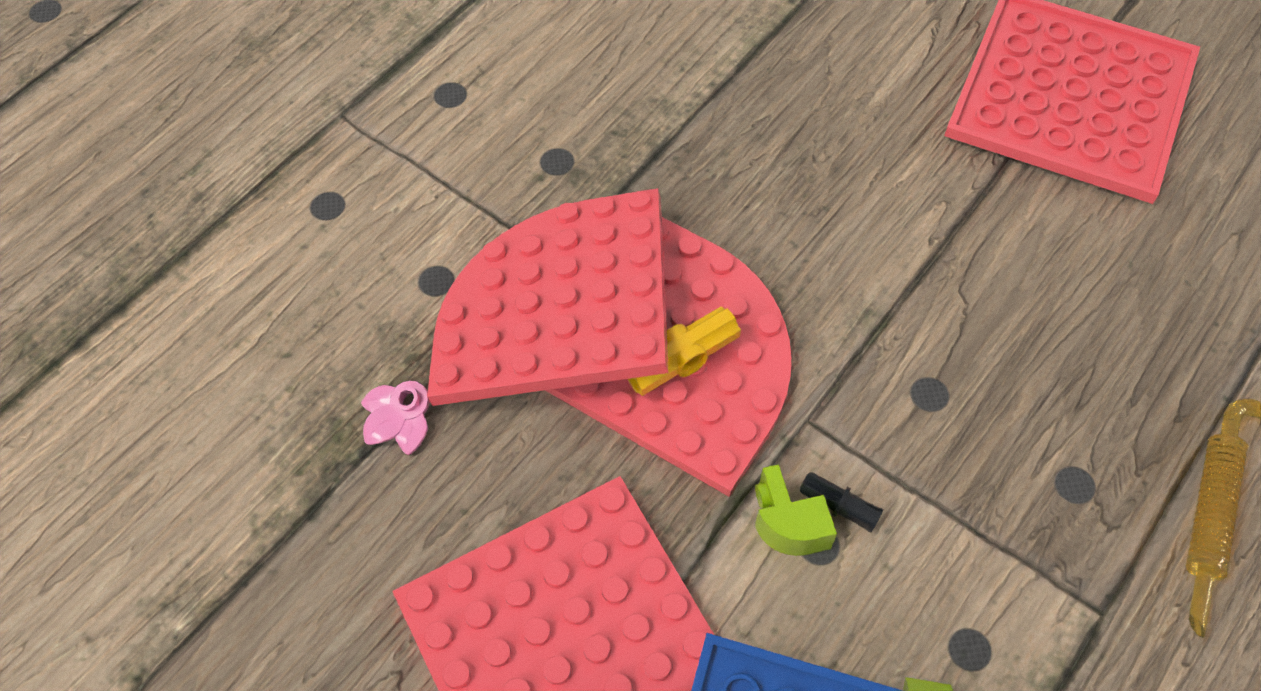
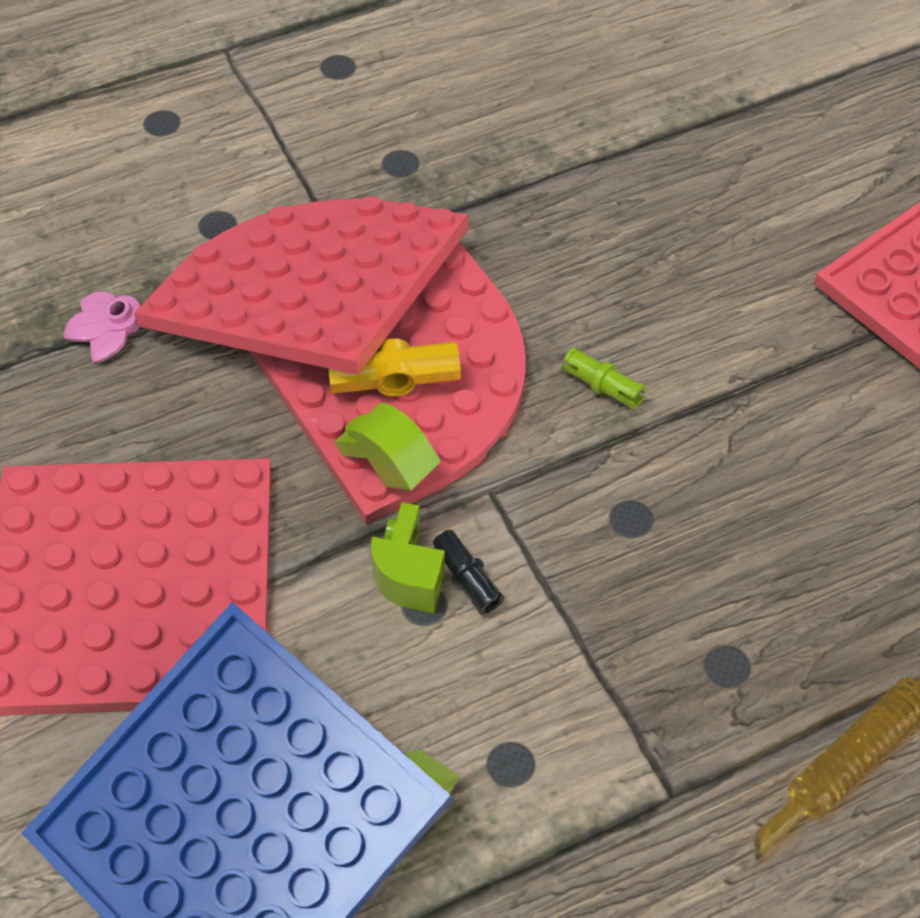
camera: 25 degrees right, 5 degrees down
(729, 420) = (392, 446): none -> lime brick
(841, 284) = (604, 378): none -> lime pin

